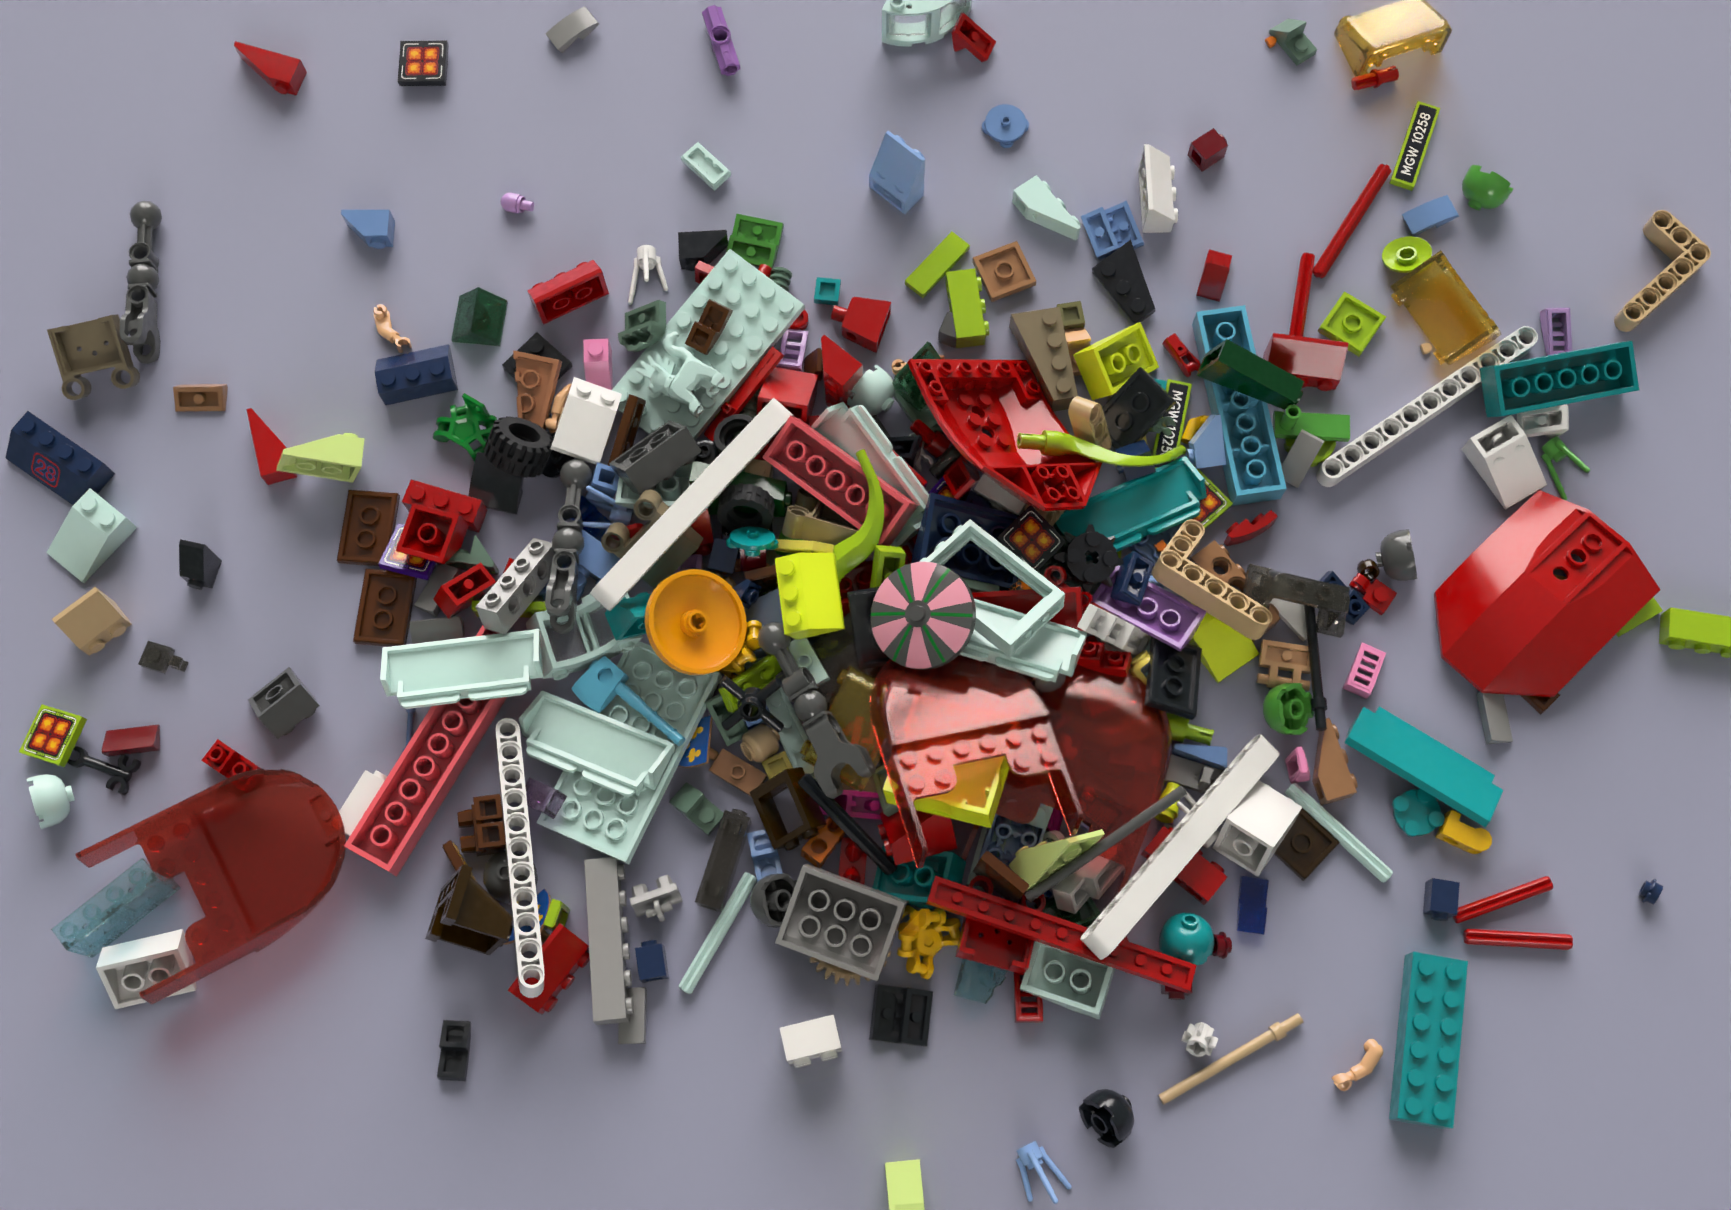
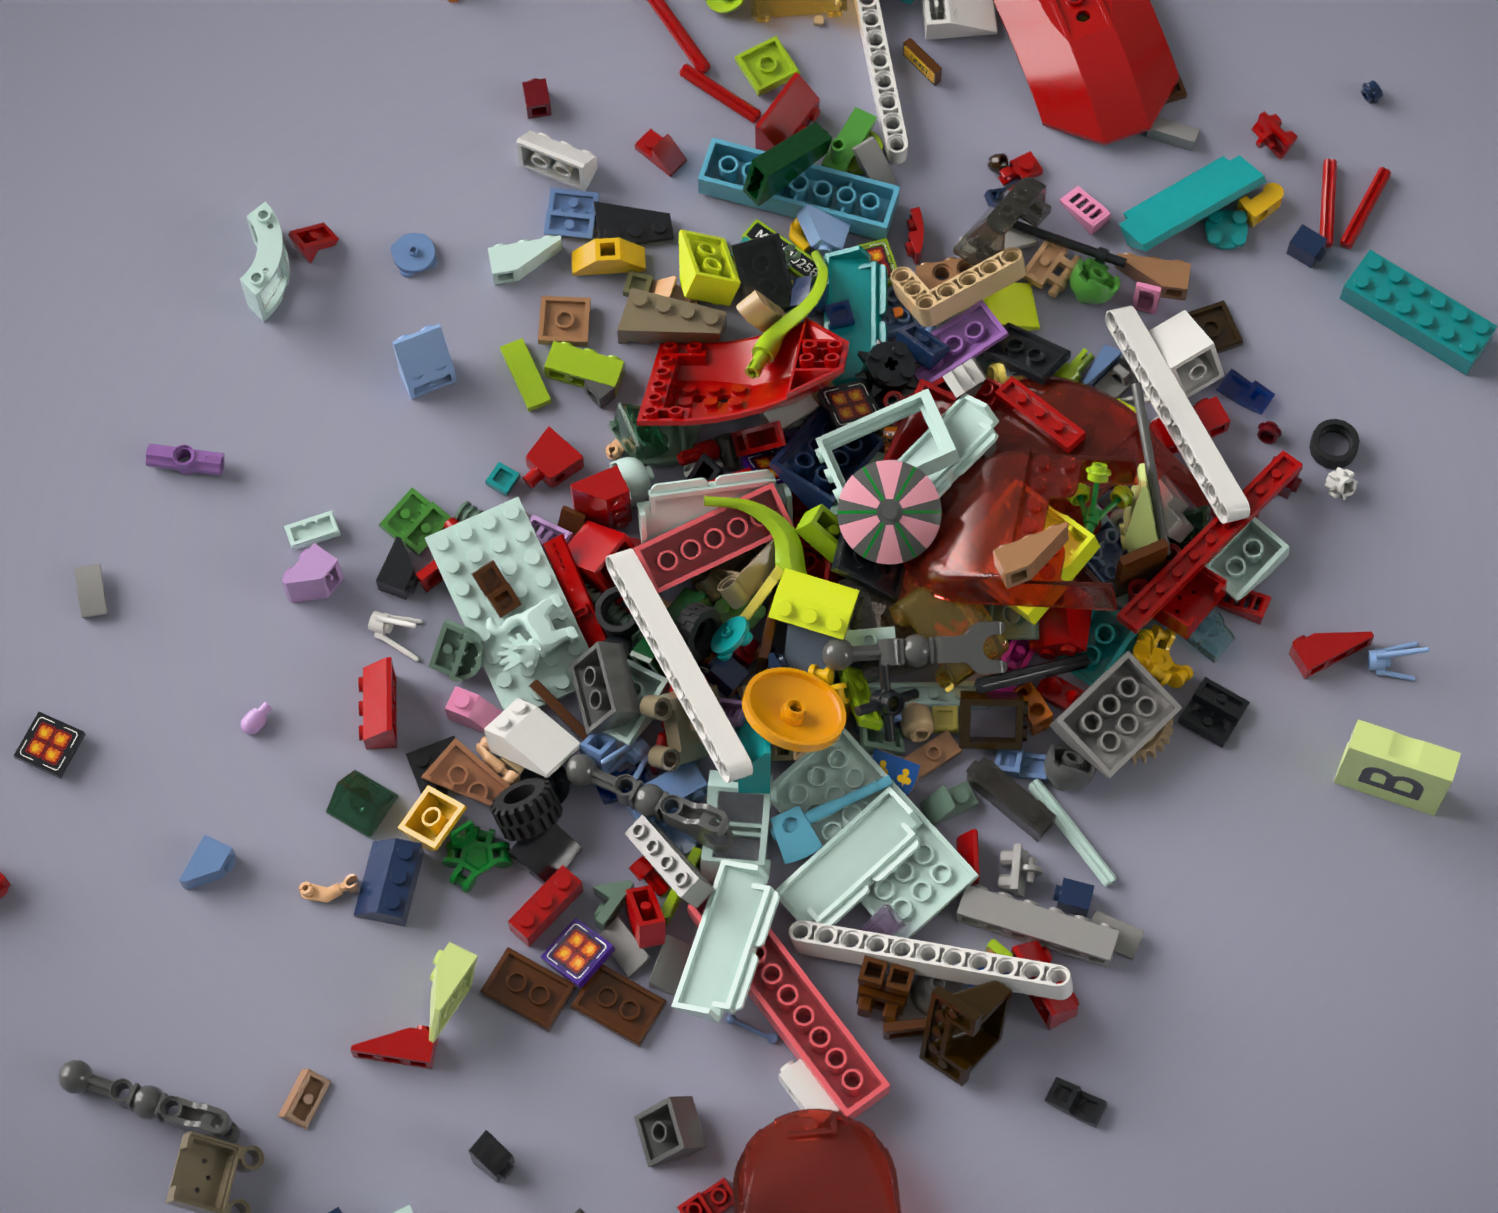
camera: 65 degrees left, 5 degrees down
(432, 534) = (577, 920): red slope -> none
(479, 375) = (431, 818): none -> yellow slope
(652, 849) = (968, 848): none -> red slope
(659, 181) = (313, 576): none -> lavender slope
(811, 1040) = (1207, 788): white brick -> none
(916, 755) = (1027, 556): none -> medium nougat slope
(1011, 1093) = (1324, 649): none -> red slope
(1039, 786) = (1121, 496): none -> plant
(1084, 279) = (608, 257): none -> yellow slope
(1108, 715) = (1040, 414): none -> red plate
(1108, 1115) = (1374, 583): black cylinder -> none
(1128, 495) = (839, 315): none -> clear blue tile
(1180, 352) = (720, 215): red bar -> none
(1187, 938) = (1253, 451): teal cylinder -> none
(1257, 1003) = (1340, 427): none -> black tyre
(1276, 1032) = (1360, 424): tan bar -> none
(1338, 831) = (1223, 293): light aqua axle -> none
(1365, 1067) = (1410, 358): light nougat arm -> none
(1397, 556) = (1000, 132): dark grey cylinder -> none
(1434, 454) = (922, 61): none -> tile
(1542, 813) = (1272, 135): none -> red hips

